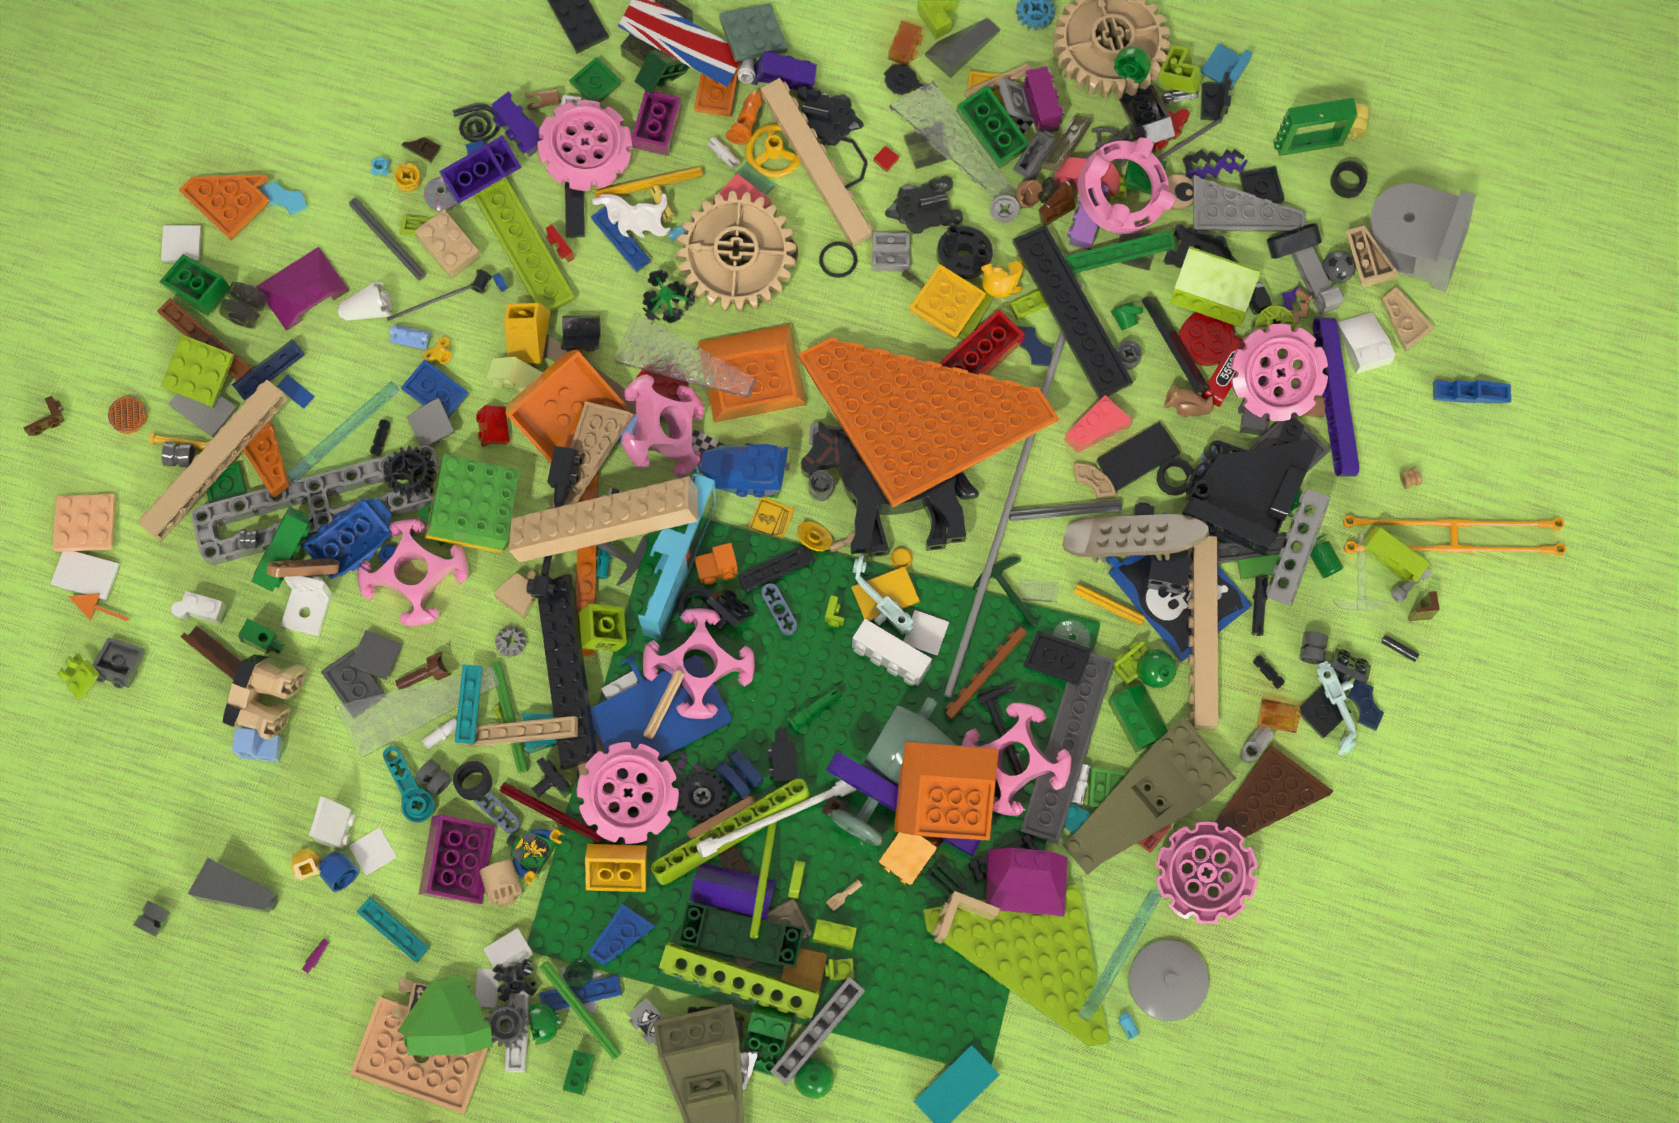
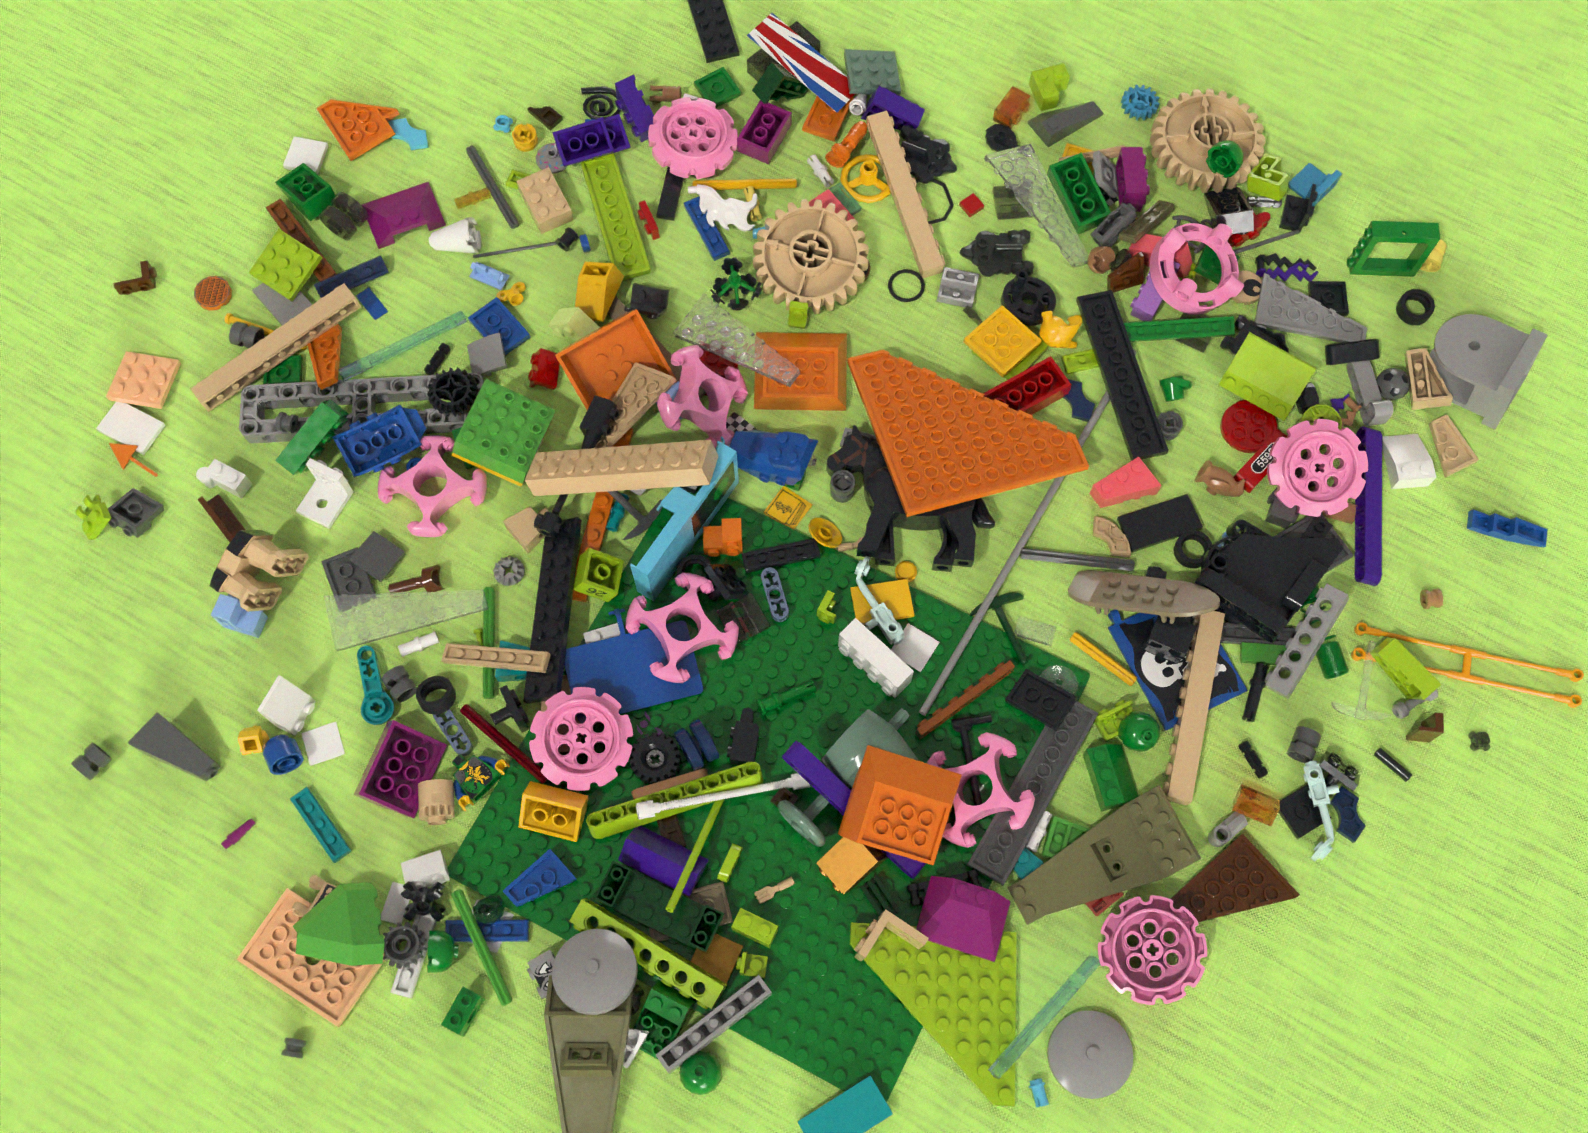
camera: 15 degrees right, 5 degrees down
(252, 634) = (271, 516): green torso -> none
(303, 567) = (326, 457): medium nougat beam -> none
(369, 255) = (472, 198): none -> clear yellow pin
(468, 704) = (451, 620): teal tile -> none
(664, 704) = (638, 659): tan axle -> none
(696, 1008) = (594, 971): none -> light grey dish
(736, 315) = (798, 314): none -> lime bracket
(756, 636) = (747, 616): none -> clear smoke slope
(1004, 216) = (1074, 277): light grey gear -> none
(1175, 344) = (1217, 425): black tile -> none
(1480, 603) = (1483, 737): none -> clear smoke plate

